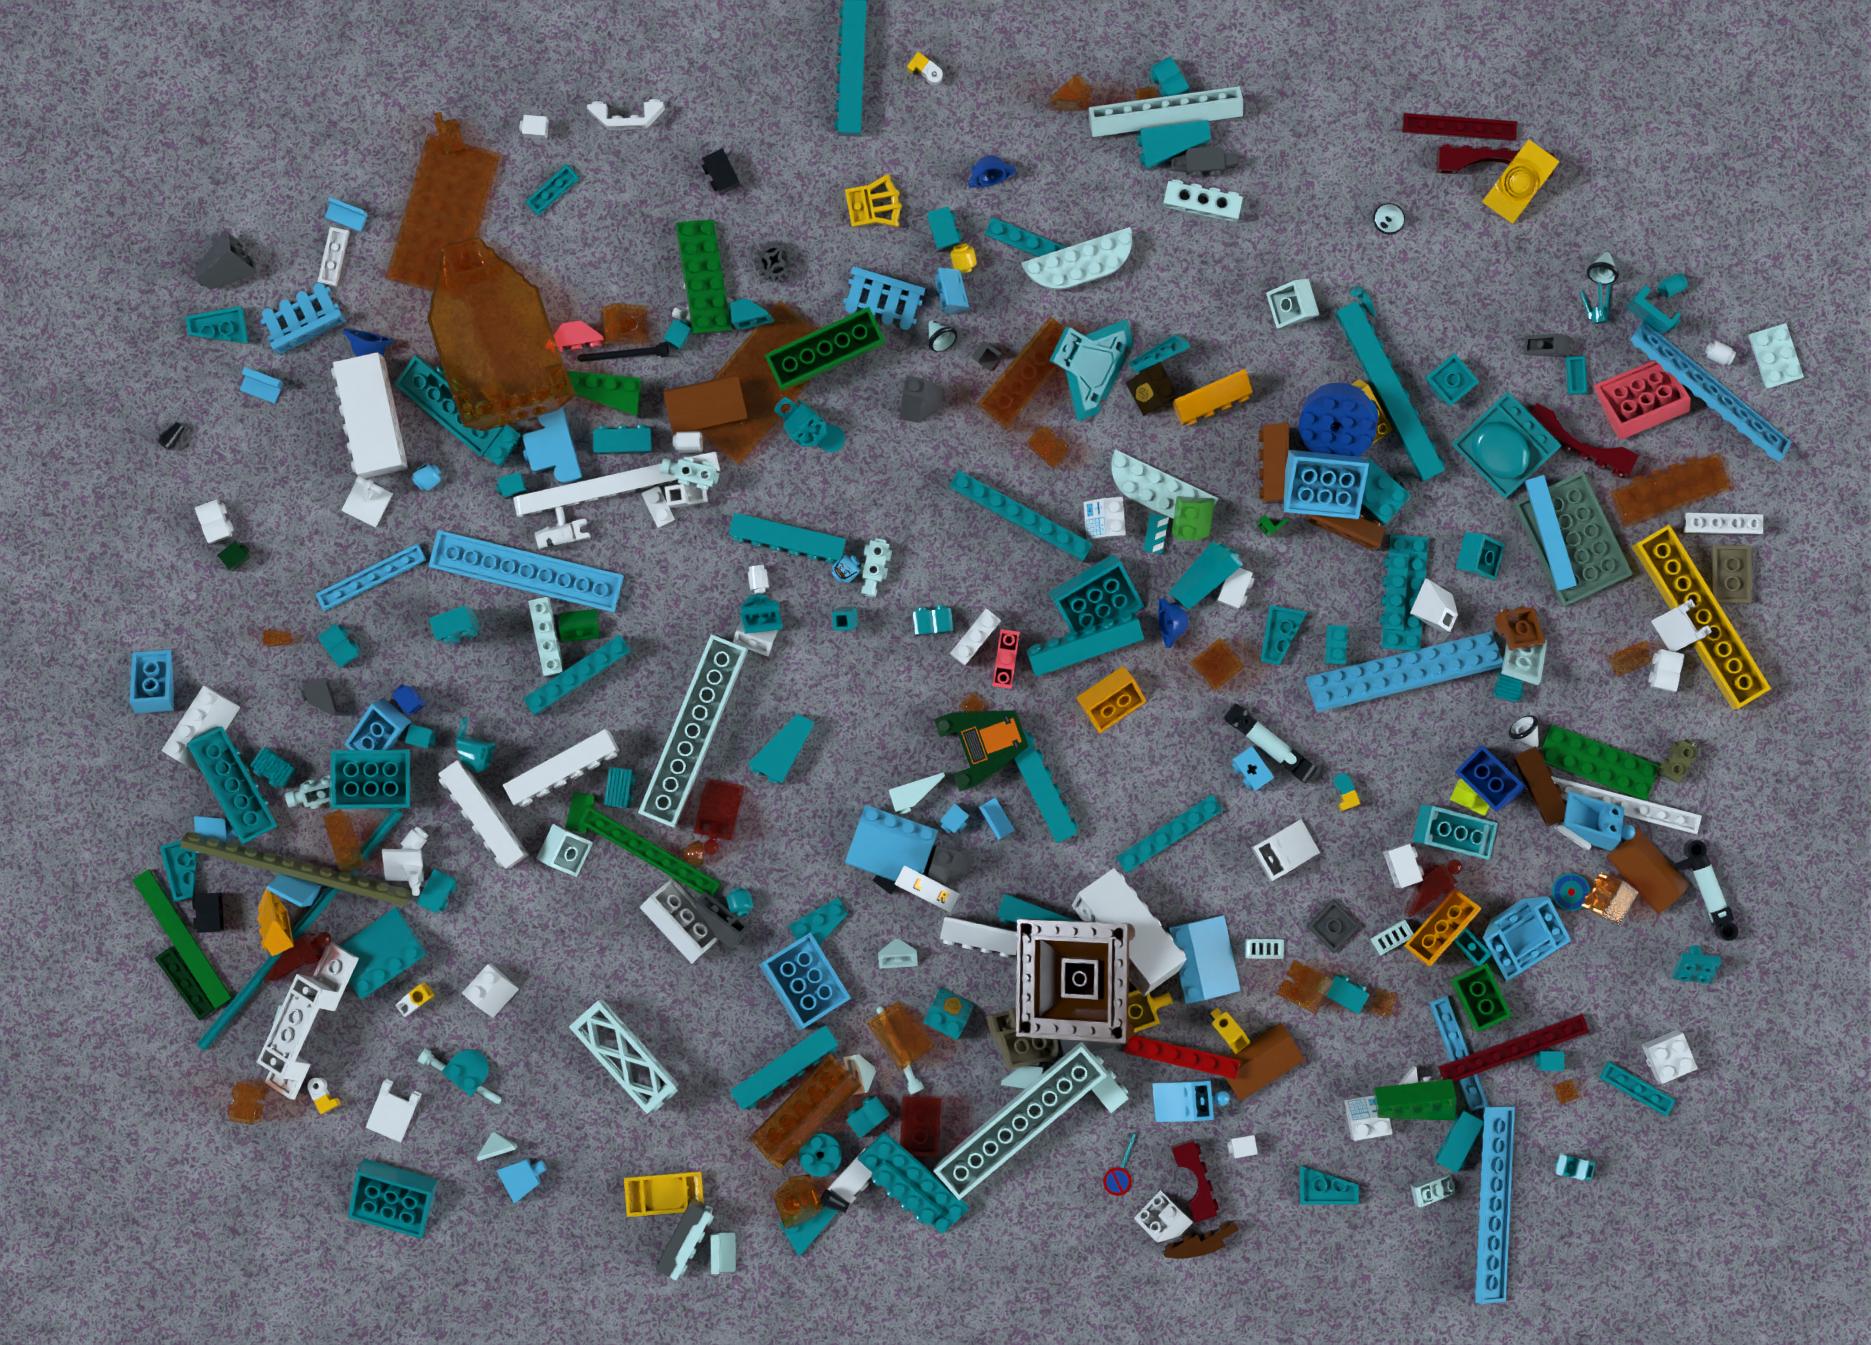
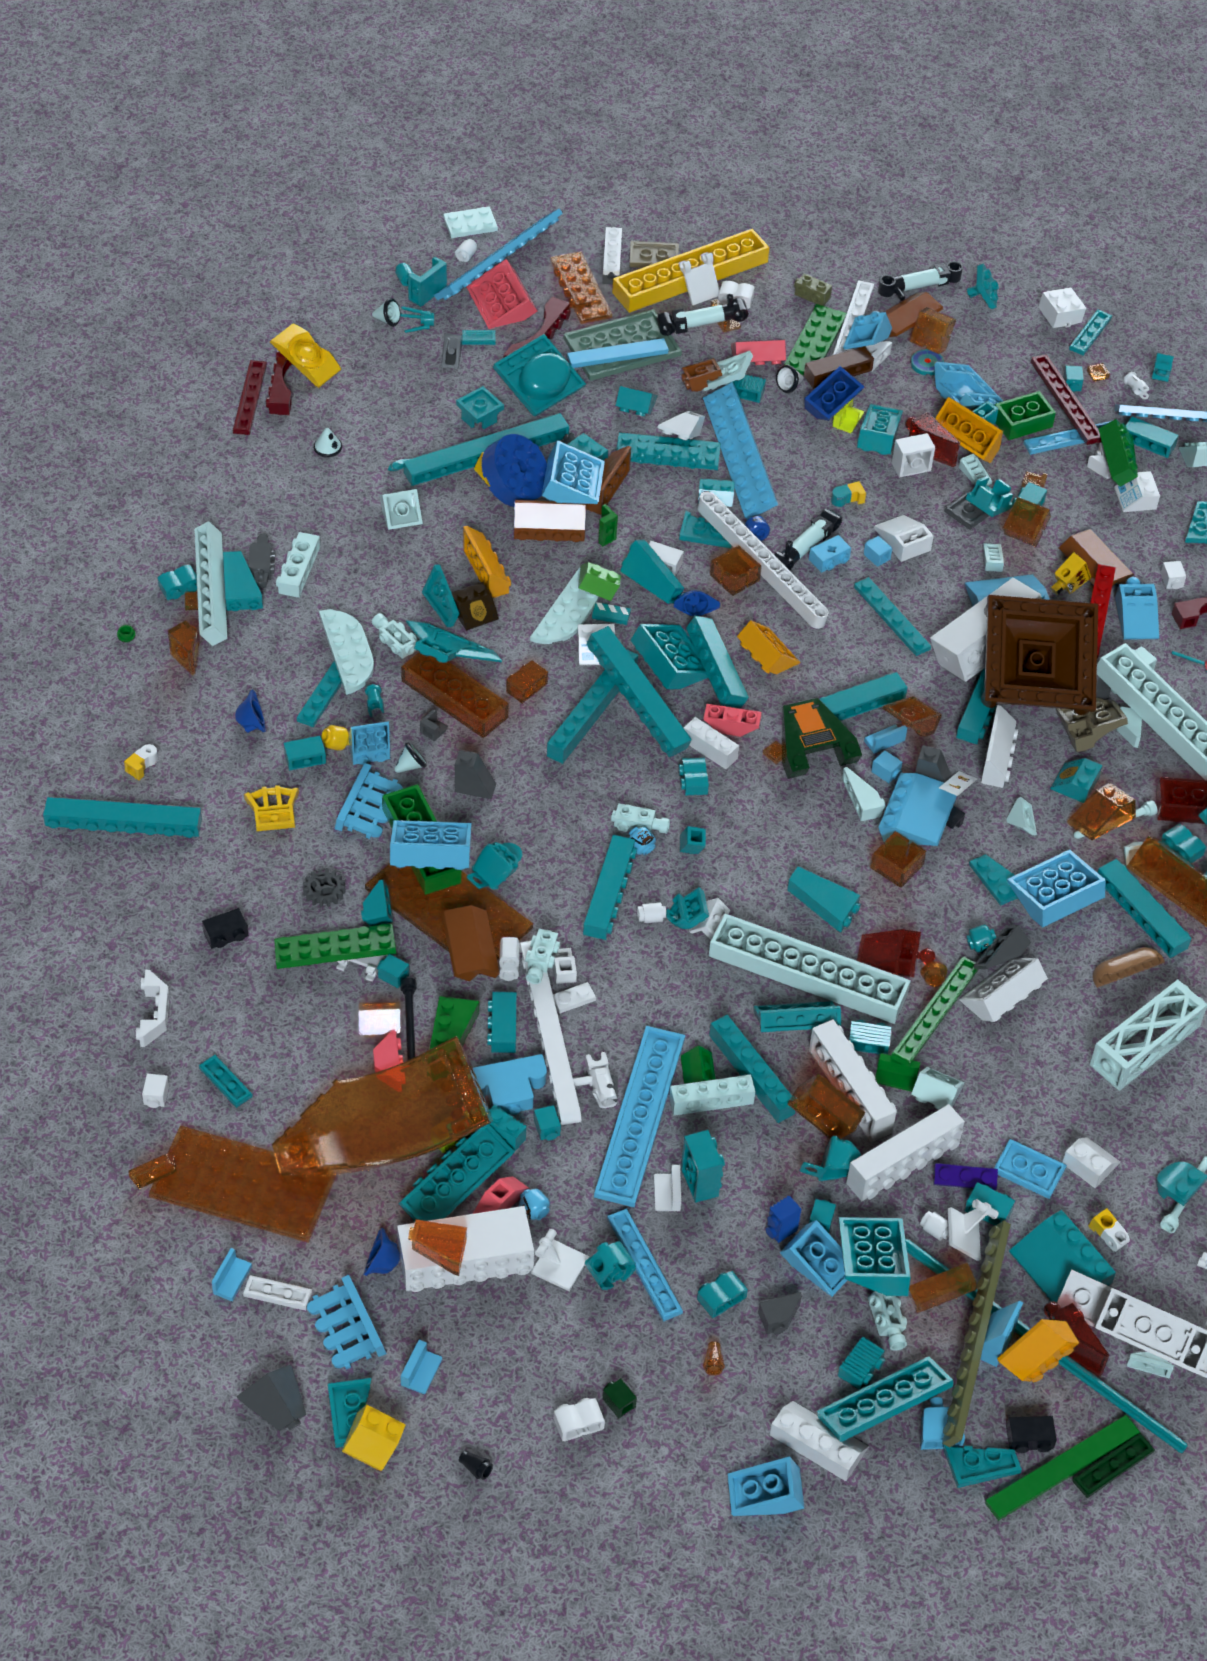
camera: 95 degrees left, 35 degrees down
(189, 347) = (373, 1437): none -> yellow slope
(352, 390) = (440, 1243): none -> clear orange slope
(358, 545) = (610, 1264): none -> teal brick
(428, 446) = (501, 1195): none -> coral slope
(446, 597) = (668, 1190): none -> white panel
(469, 871) = (964, 1176): none -> dark purple plate
(482, 932) = (1030, 1168): none -> medium azure tile
(522, 741) = (826, 1107): none -> clear orange brick
(624, 718) = (796, 1015): none -> teal fence
(718, 1044) = (1126, 965): none -> medium nougat brick
(803, 356) = (430, 844): none -> medium azure slope
(829, 823) = (893, 863): none -> clear orange piece
(1011, 844) = (915, 715): none -> clear orange slope
(1018, 293) = (374, 699): none -> teal piece
(1028, 560) = (638, 691): none -> teal brick
(1097, 28) = (128, 630): none -> green plate
(1100, 312) = (395, 636): none -> light aqua brick
(1258, 678) = (772, 568): none -> white beam
(1260, 820) = (877, 551): none -> medium azure brick
(1285, 690) = (758, 526): none -> blue head
(1346, 950) = (991, 500): none -> teal panel
(1543, 1138) = (1138, 386): none -> white piece
(1571, 695) = (762, 351): none -> coral slope
(1604, 606) = (681, 320): none -> black piece

